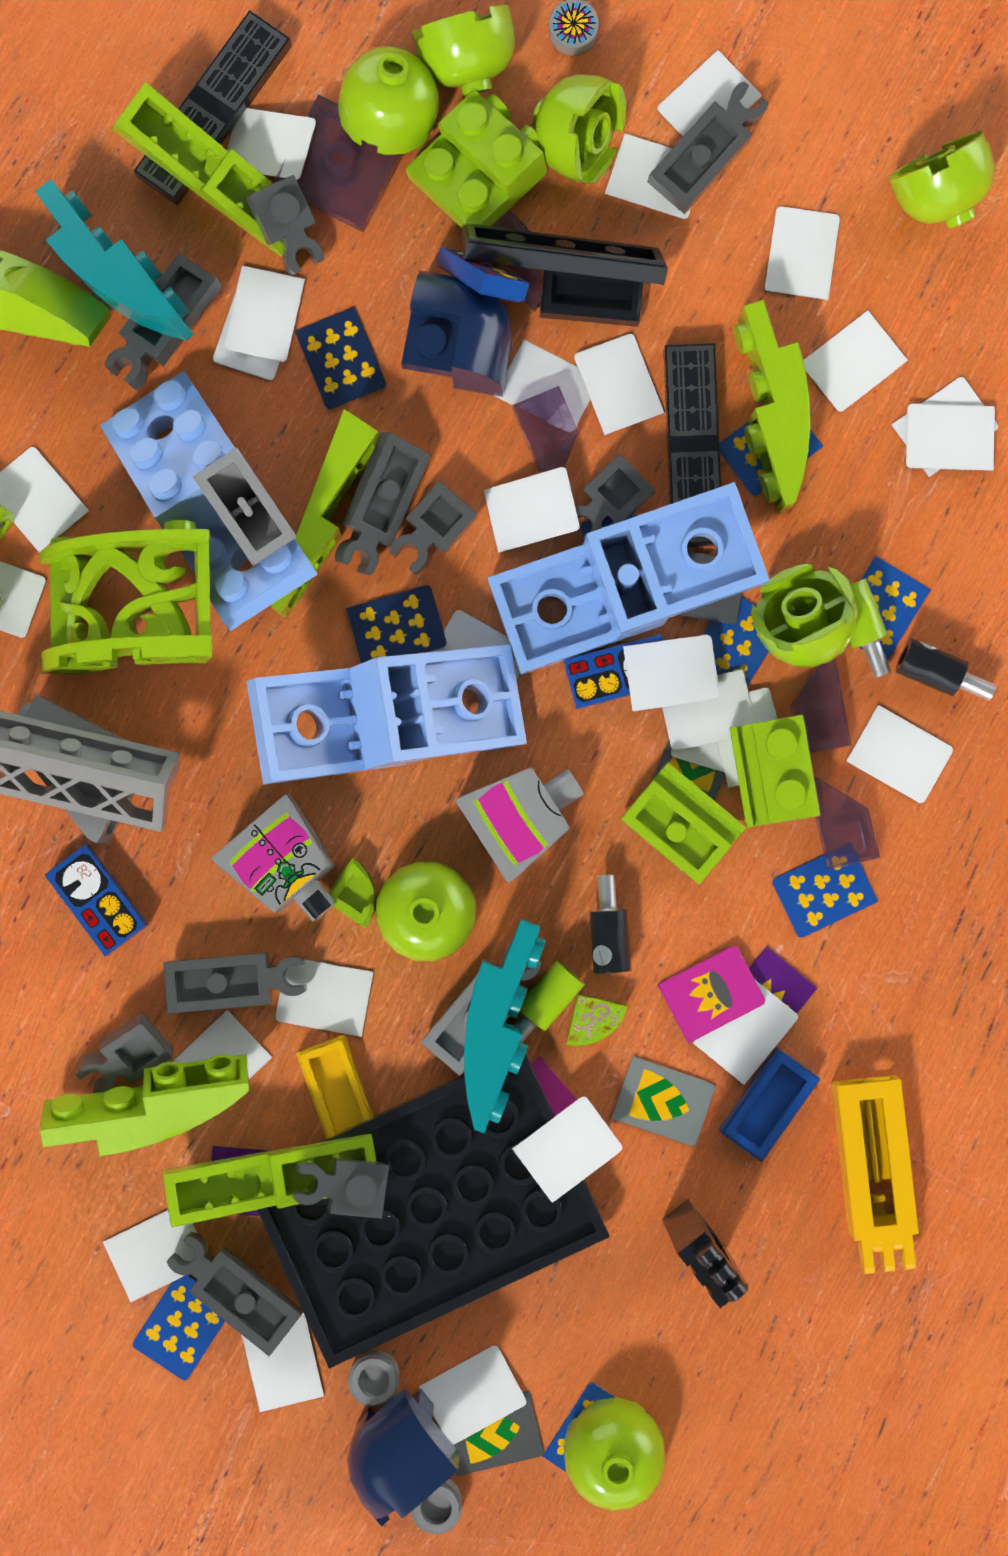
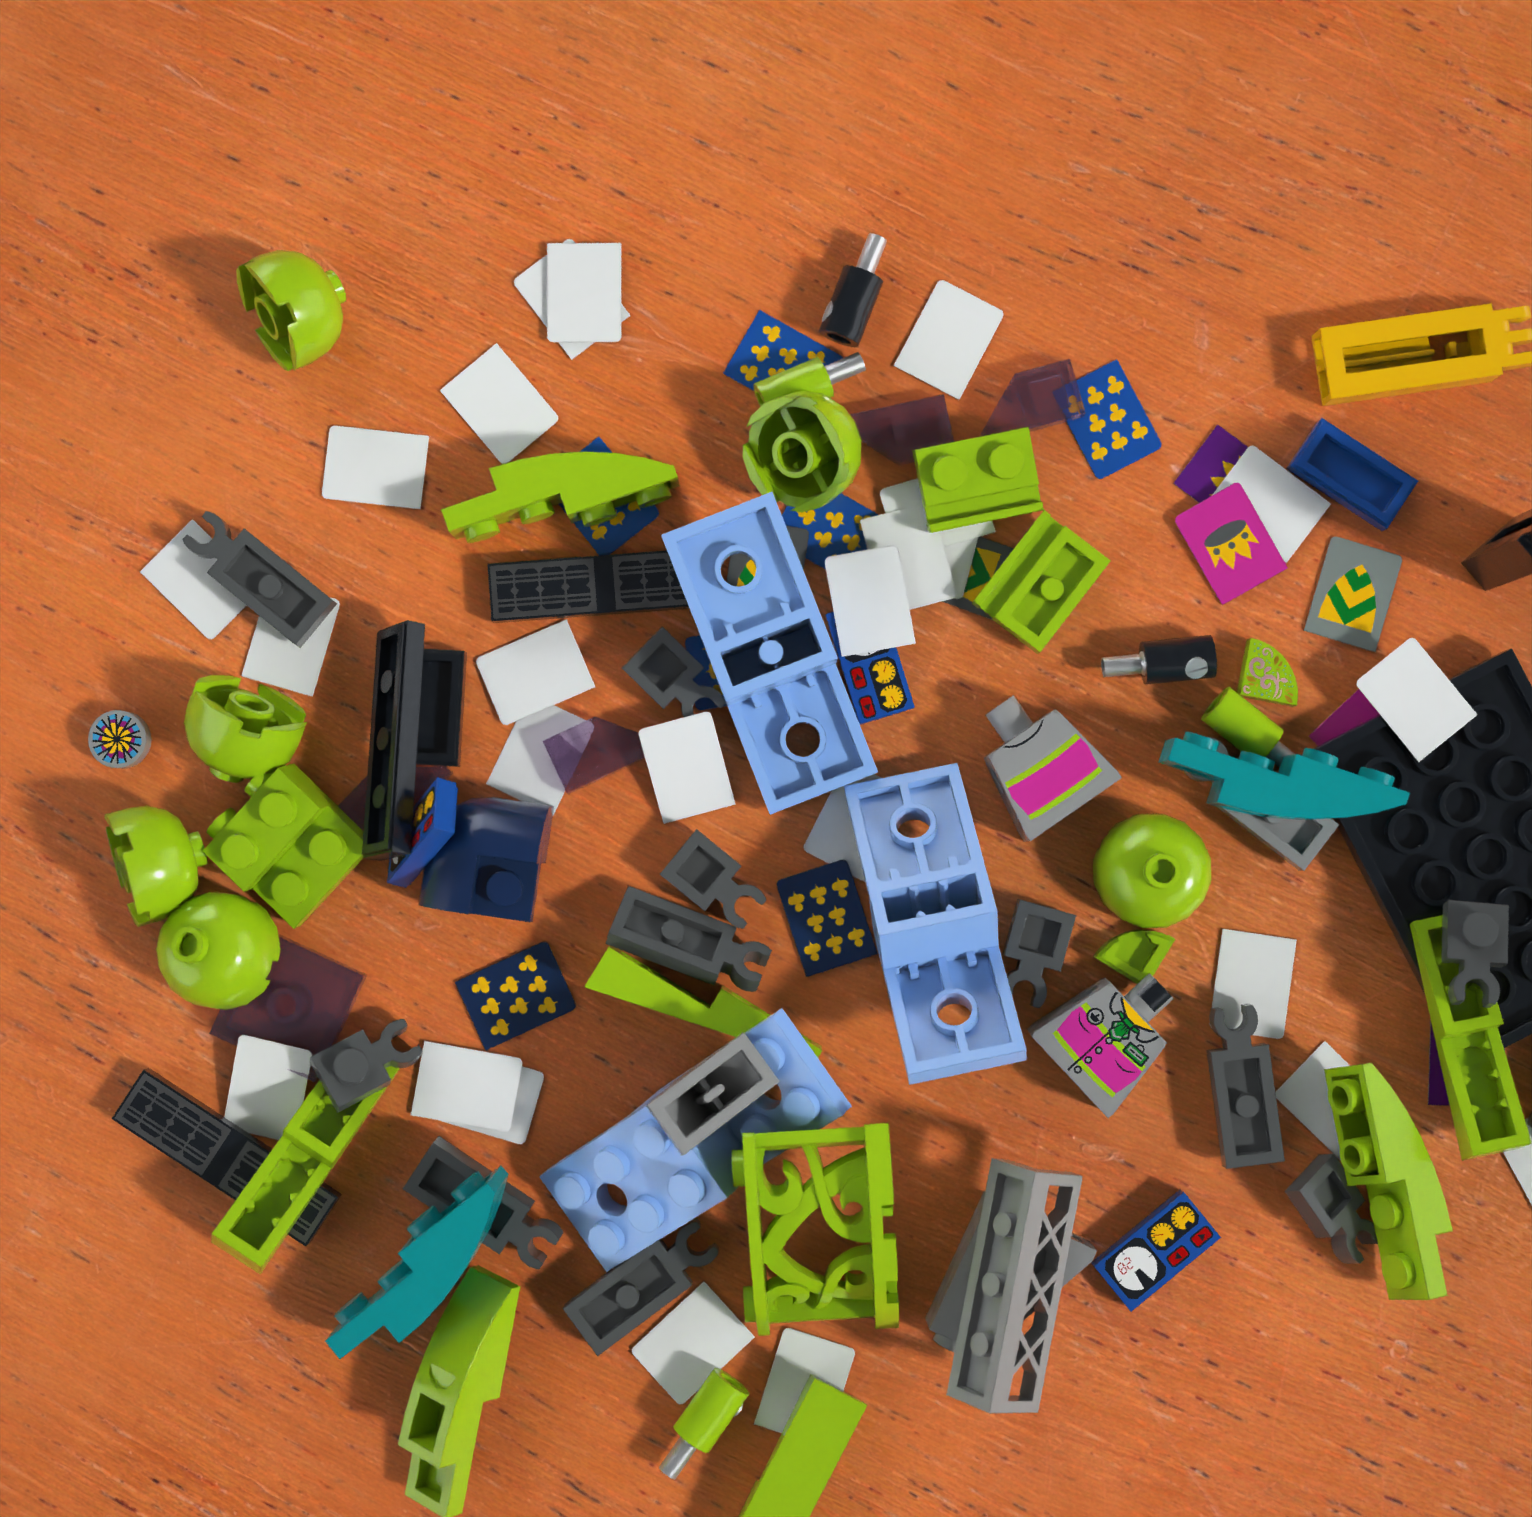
camera: 90 degrees left, 0 degrees up
(84, 449) = (636, 1289): none -> dark grey plate
(335, 1085) = (1353, 967): yellow tile -> none
(367, 807) = (1038, 940): none -> dark grey plate

